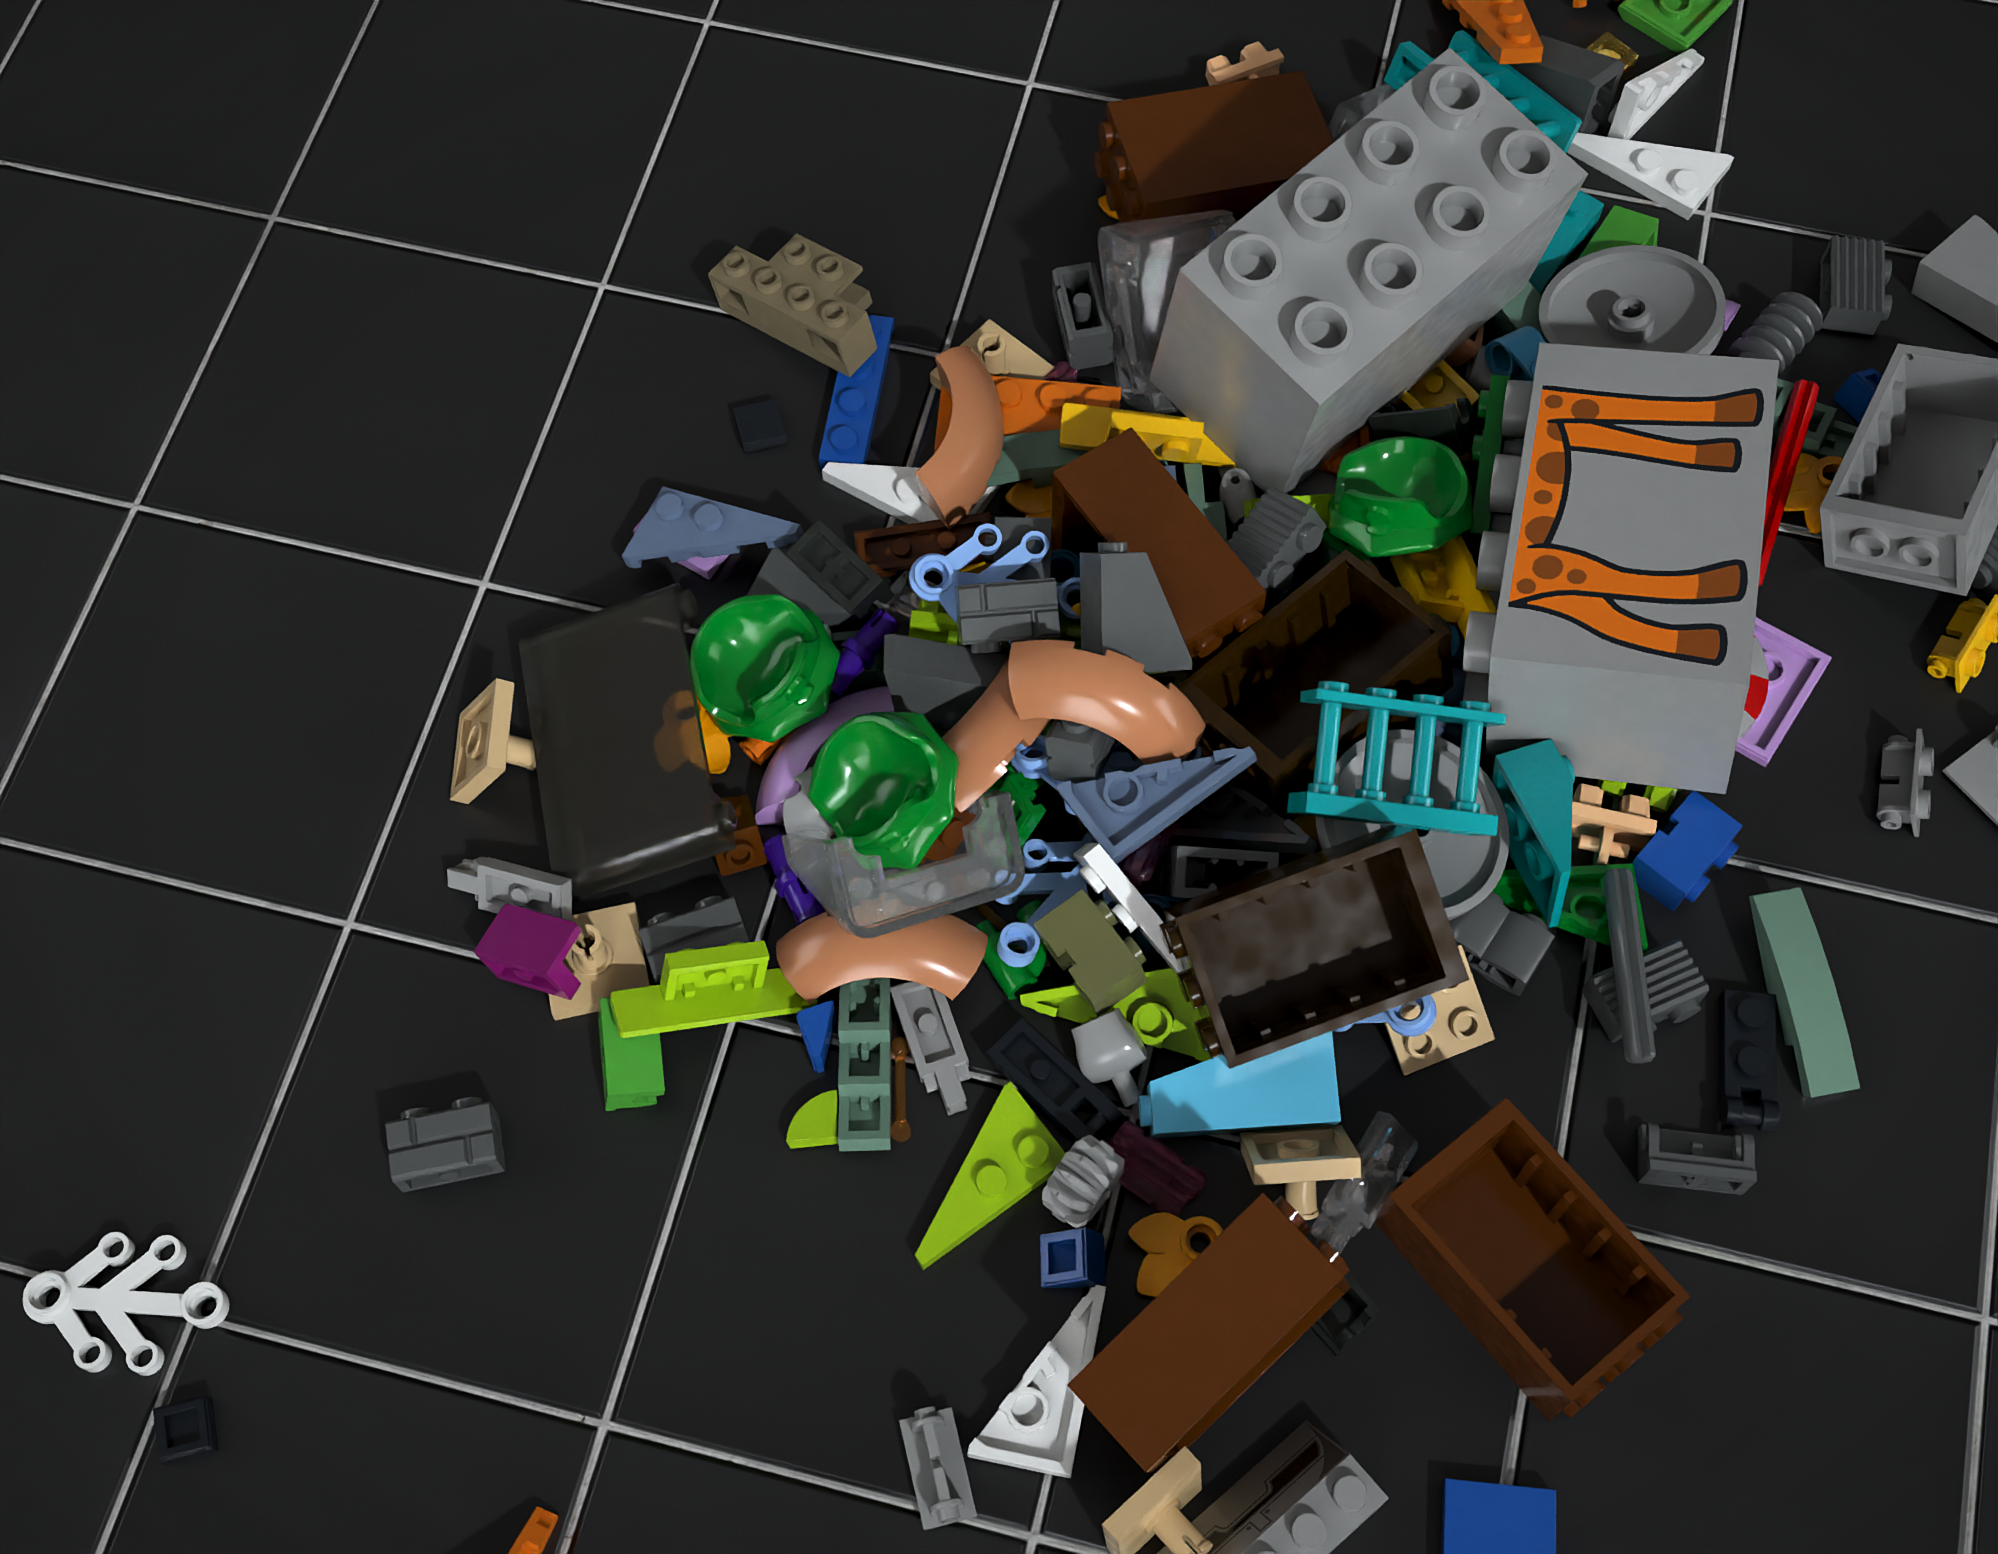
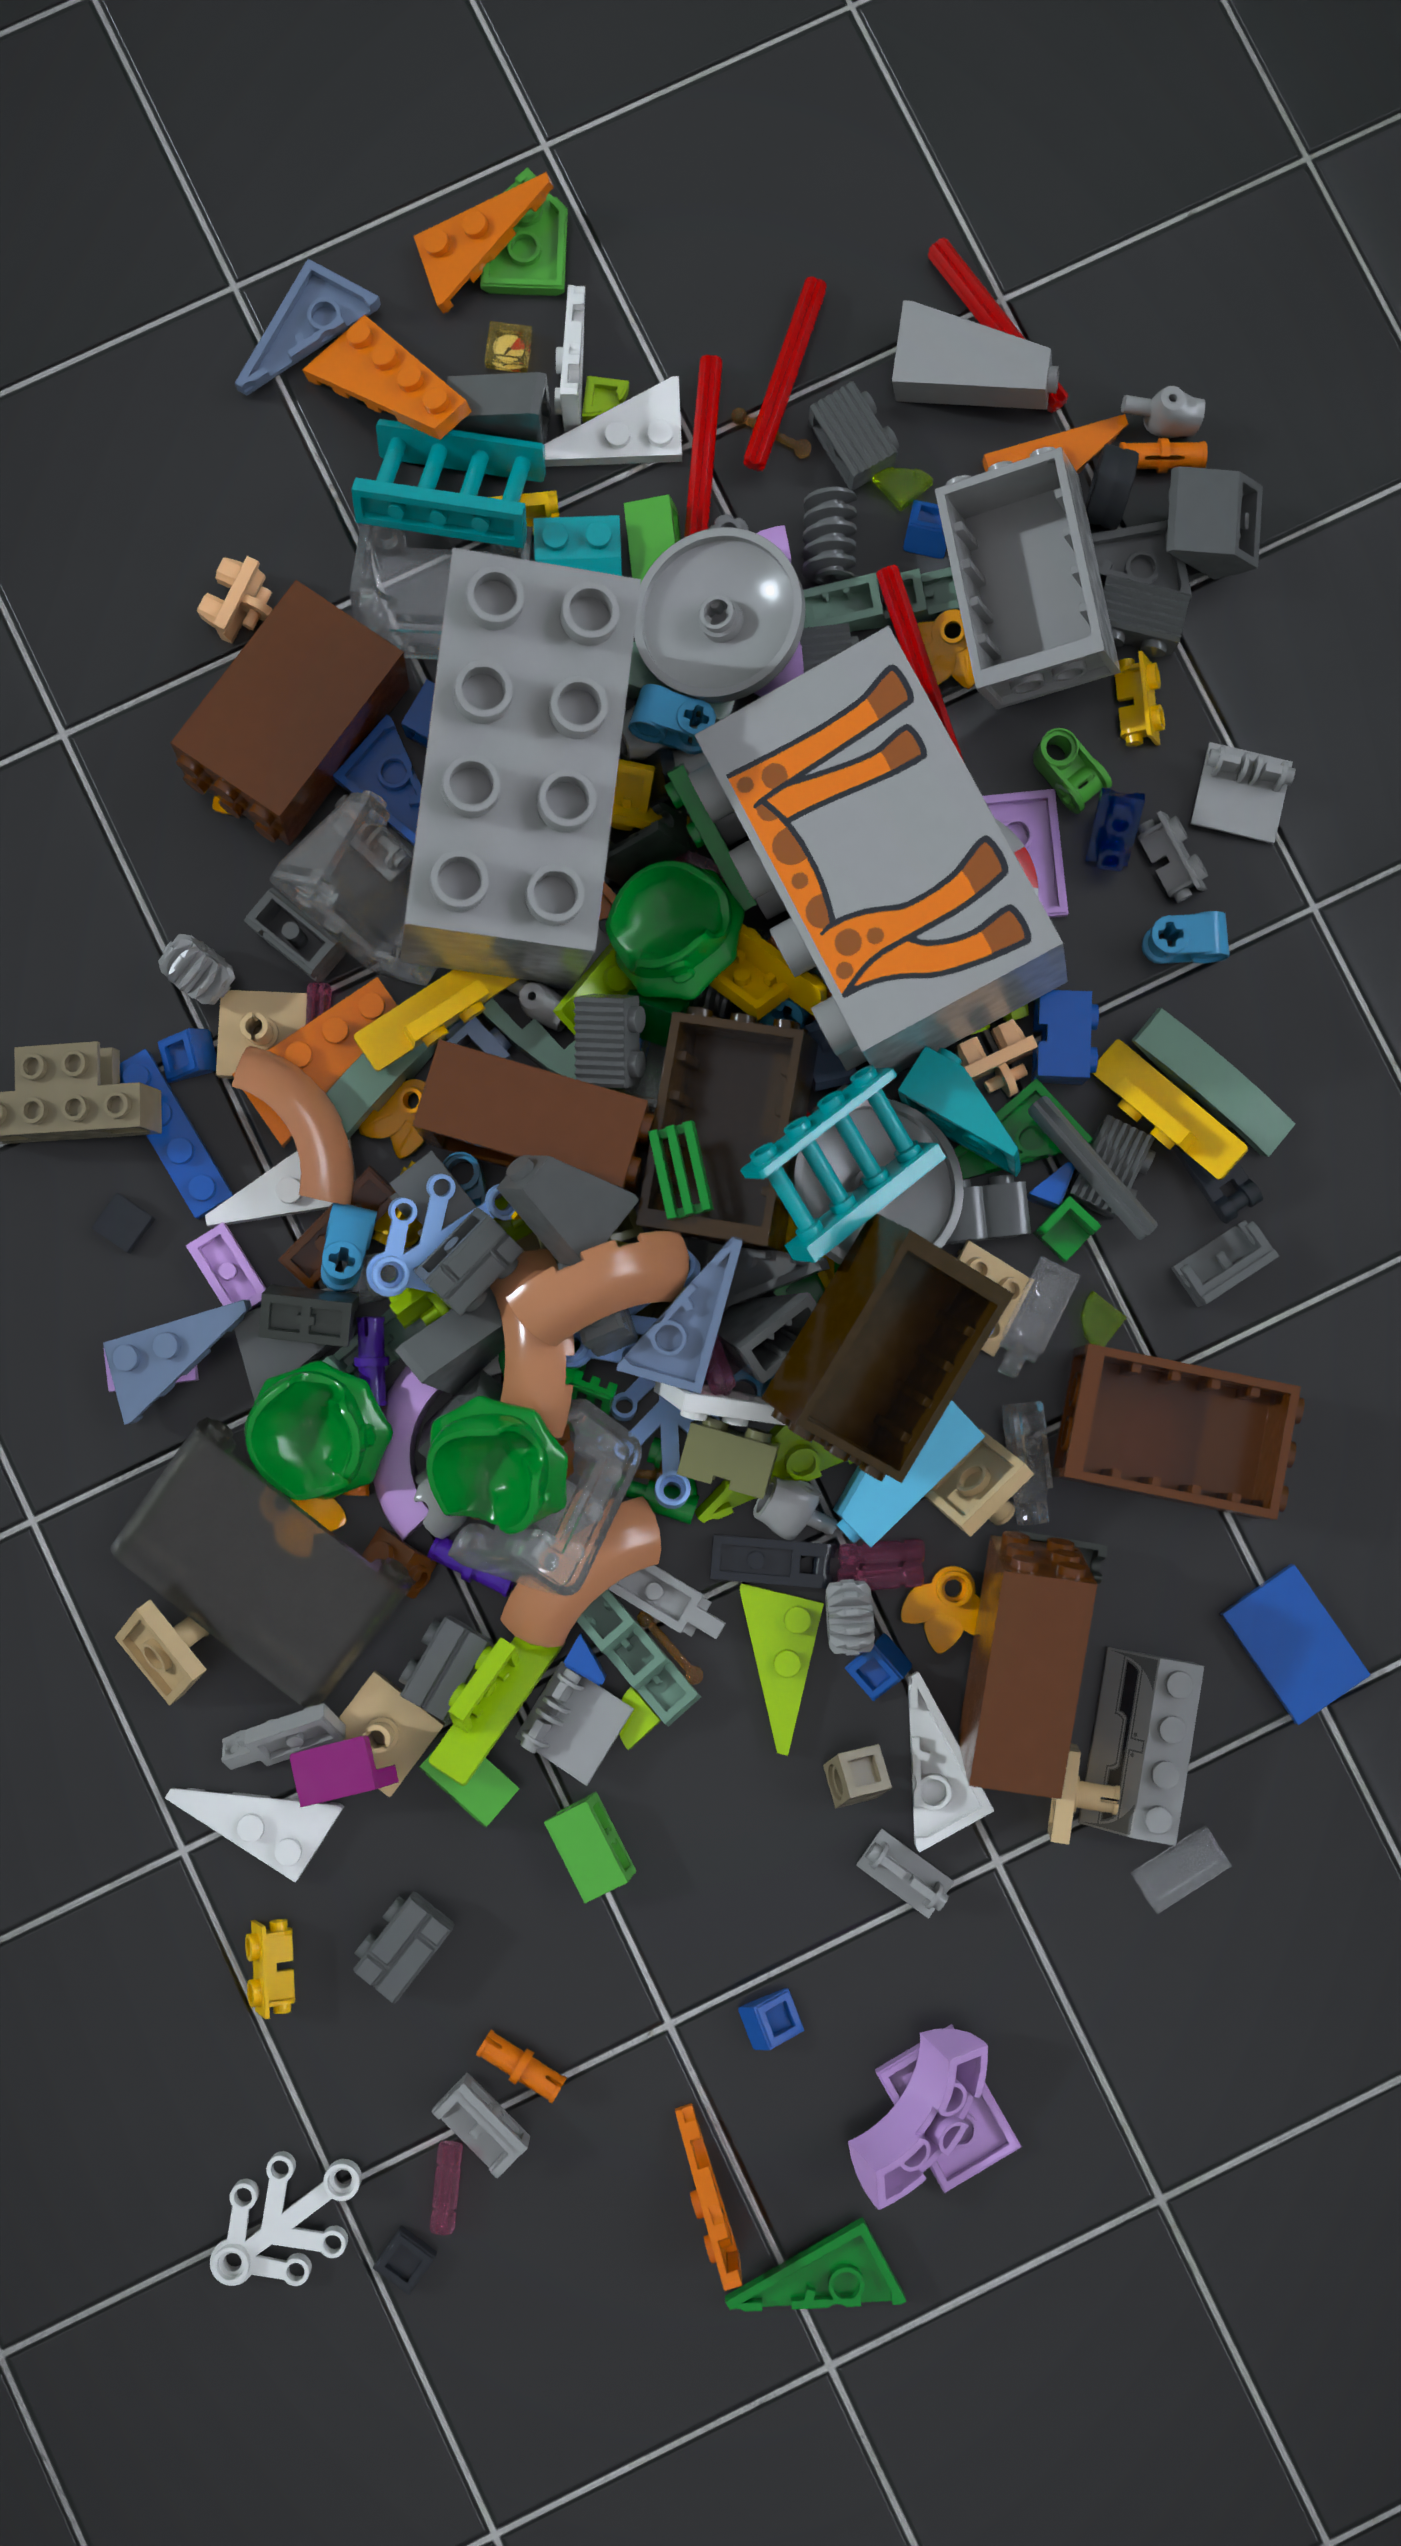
camera: 45 degrees left, 20 degrees up
(280, 1394) = (446, 2187): none -> clear pink axle
(336, 1055) = (270, 1986): none -> yellow hinge
(363, 1362) = (482, 2124): none -> light grey hinge
(433, 961) = (264, 1826): none -> white wing
(444, 1340) = (521, 2066): none -> orange pin
(679, 1197) = (590, 1847): none -> bright green hinge
(698, 1499) = (771, 2020): none -> blue slope
(760, 1079) = (574, 1723): none -> light grey hinge
(810, 498) = (226, 1267): none -> lavender plate
(905, 545) = (347, 1240): none -> dark azure piece
(919, 346) = (188, 1054): none -> blue slope
(969, 1329) = (857, 1776): none -> dark tan brick
(983, 285) = (196, 969): none -> light grey gear
(1230, 663) = (672, 1132): none -> green tile
(1473, 1064) = (1036, 1314): none -> clear hinge
(1539, 1112) = (1099, 1319): none -> clear neon green tile
(1562, 1010) = (1066, 1229): none -> green panel
(1573, 965) = (1053, 1189): none -> blue slope
(1659, 131) = (602, 395): none -> lime tile
(1726, 207) = (703, 444): none -> red axle
(1741, 979) = (1169, 1109): none -> yellow bracket
(1800, 271) = (801, 447): none -> clear orange hinge
(1826, 210) = (785, 374): none -> red axle
(1863, 654) = (1072, 772): none -> bright green piece
(1867, 350) = (902, 485): none -> clear neon green tile
(1867, 715) = (1114, 829): none -> clear blue hips
(1870, 856) = (1194, 938): none -> dark azure piece

